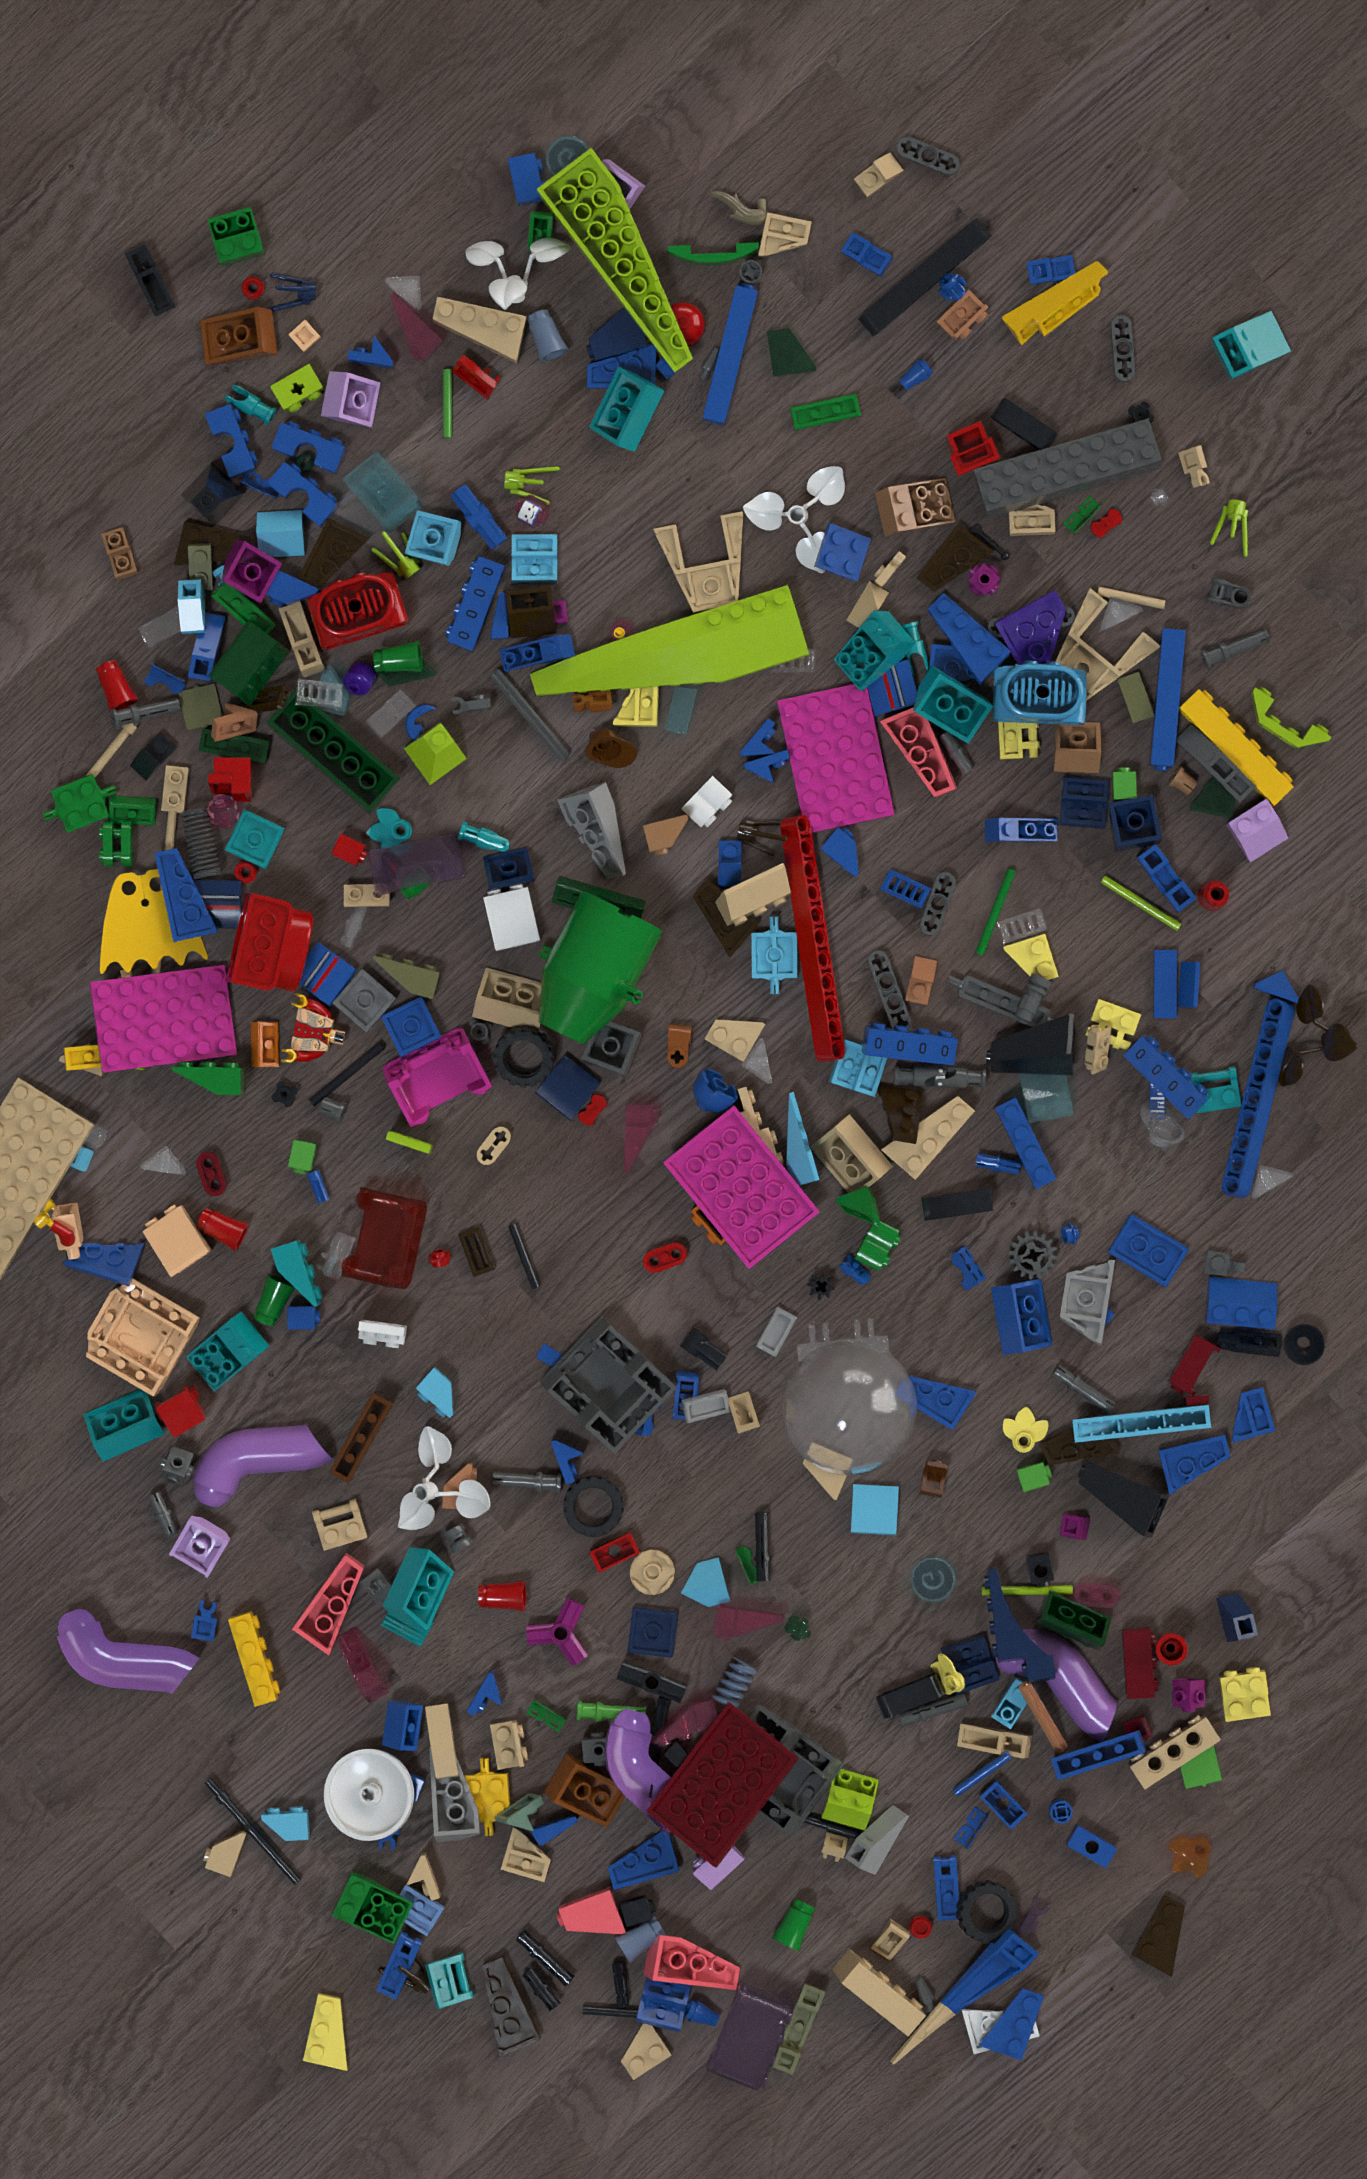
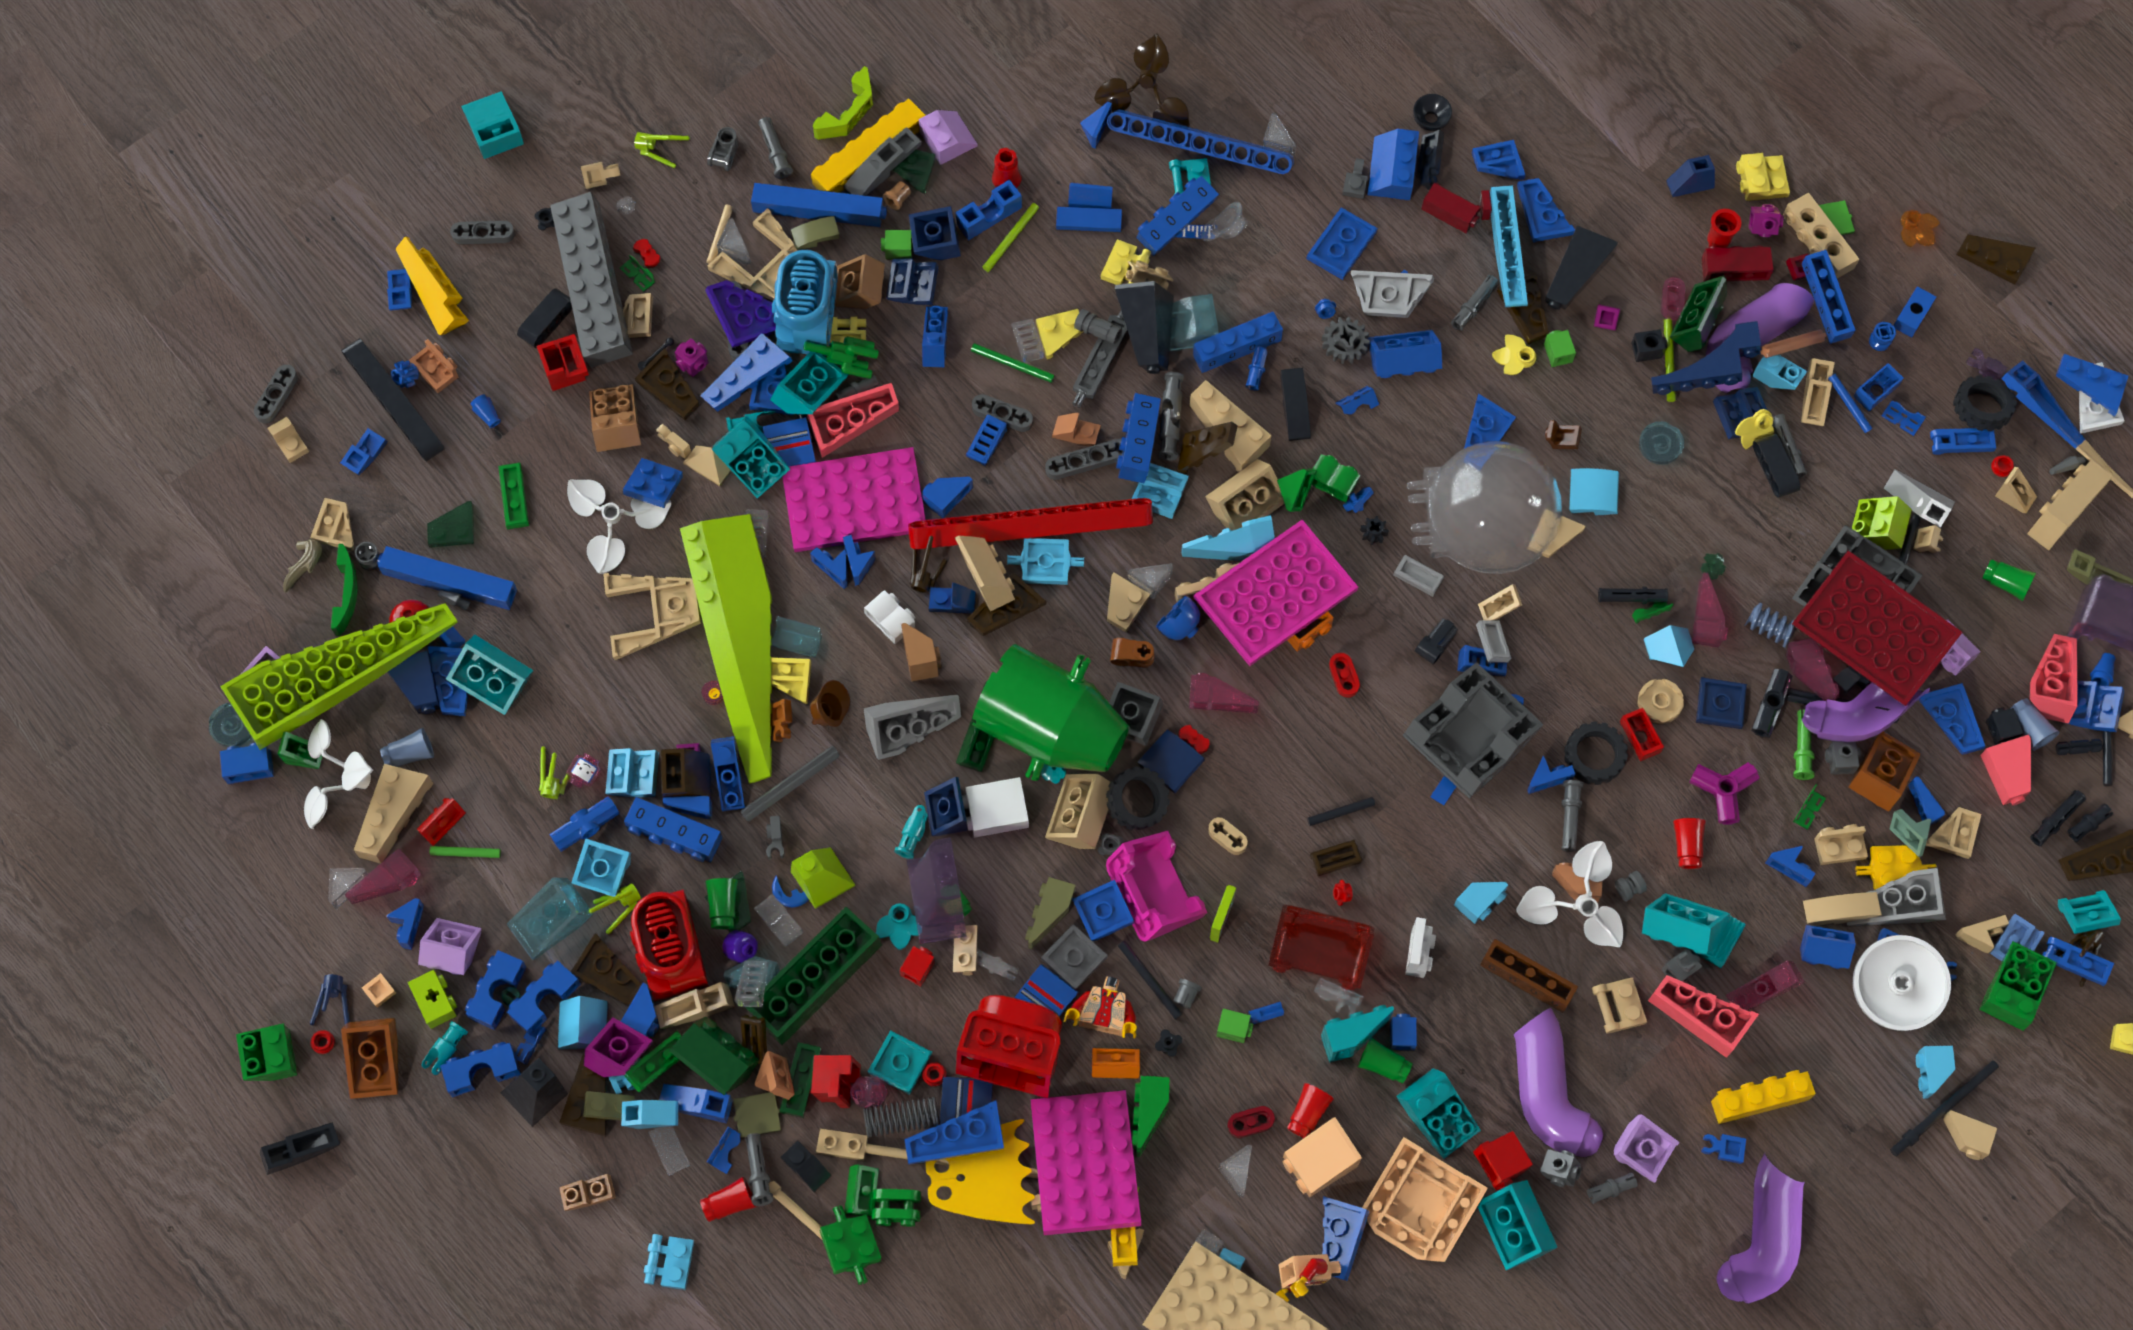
camera: 85 degrees left, 20 degrees down
(58, 643) = (676, 1263): none -> medium azure plate
(987, 740) = (846, 354): none -> green plant

